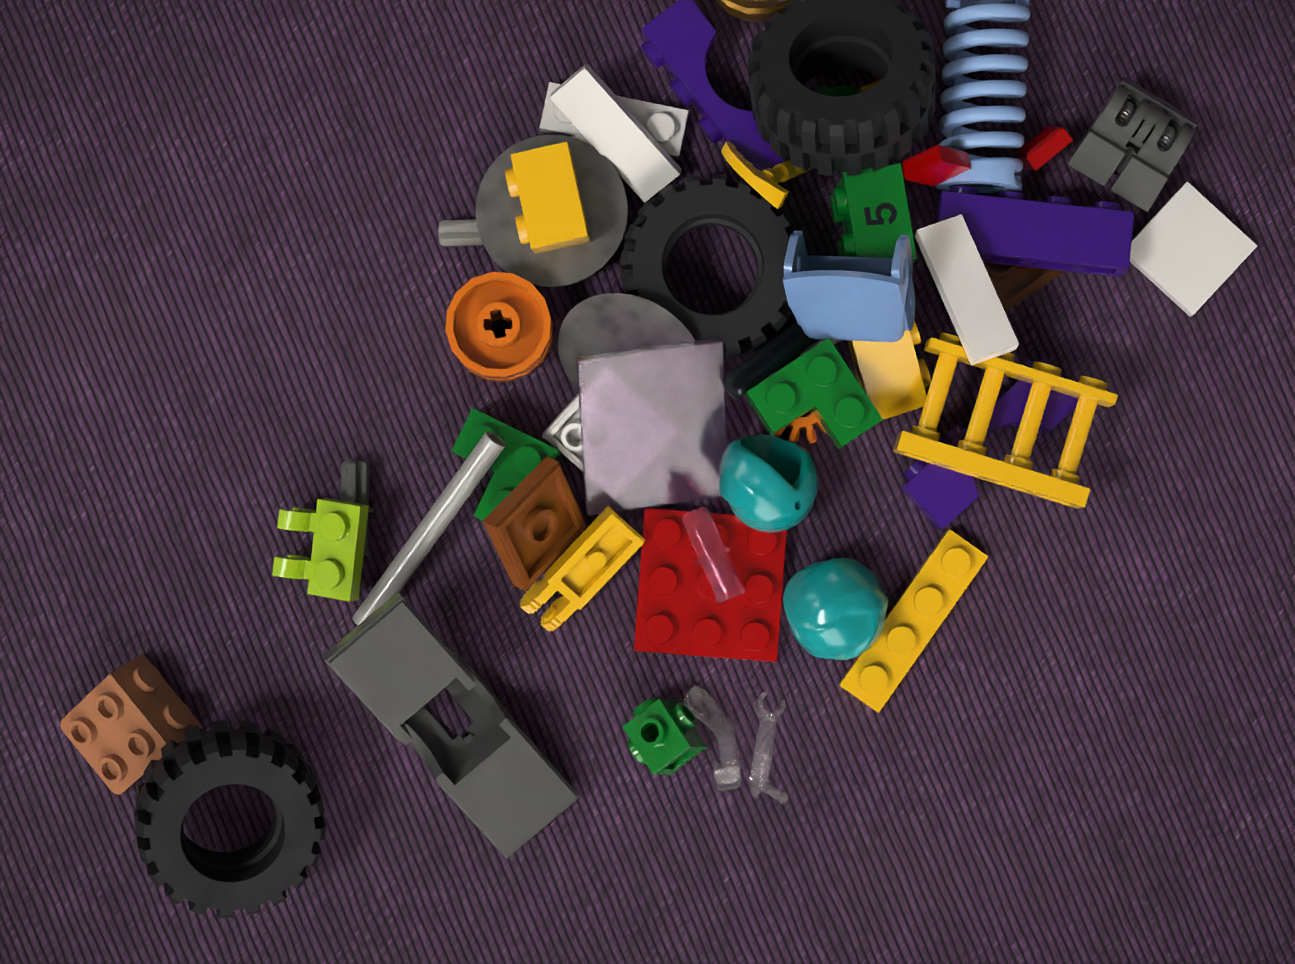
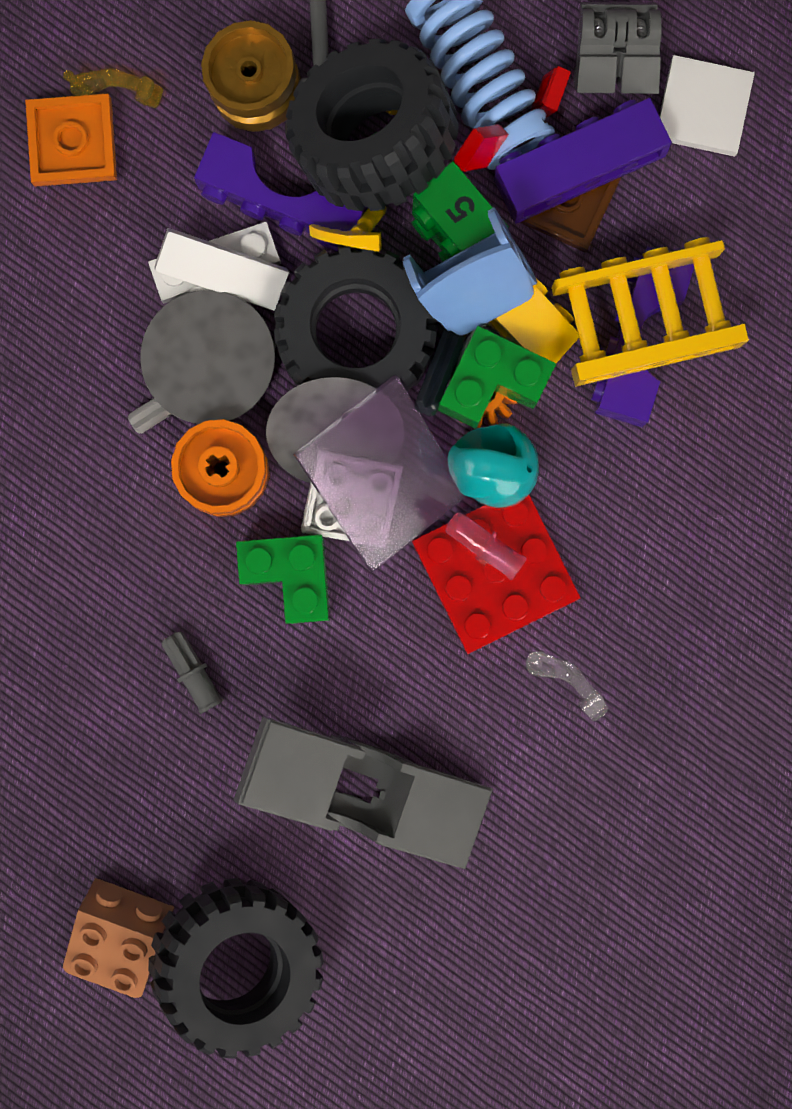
camera: 35 degrees left, 0 degrees up
(336, 548) = (195, 710): lime plate -> none
(433, 524) = (258, 648): light grey piece -> none
(535, 523) = (336, 601): dark orange tile -> none
(548, 198) = (200, 347): yellow brick -> none
(583, 568) = (392, 614): yellow hinge -> none
(663, 735) = (529, 704): green brick -> none
(764, 751) = (611, 670): clear piece -> none
(835, 608) = (602, 531): teal piece -> none
(914, 620) = (664, 506): yellow plate -> none
(966, 289) = (560, 228): white tile -> none

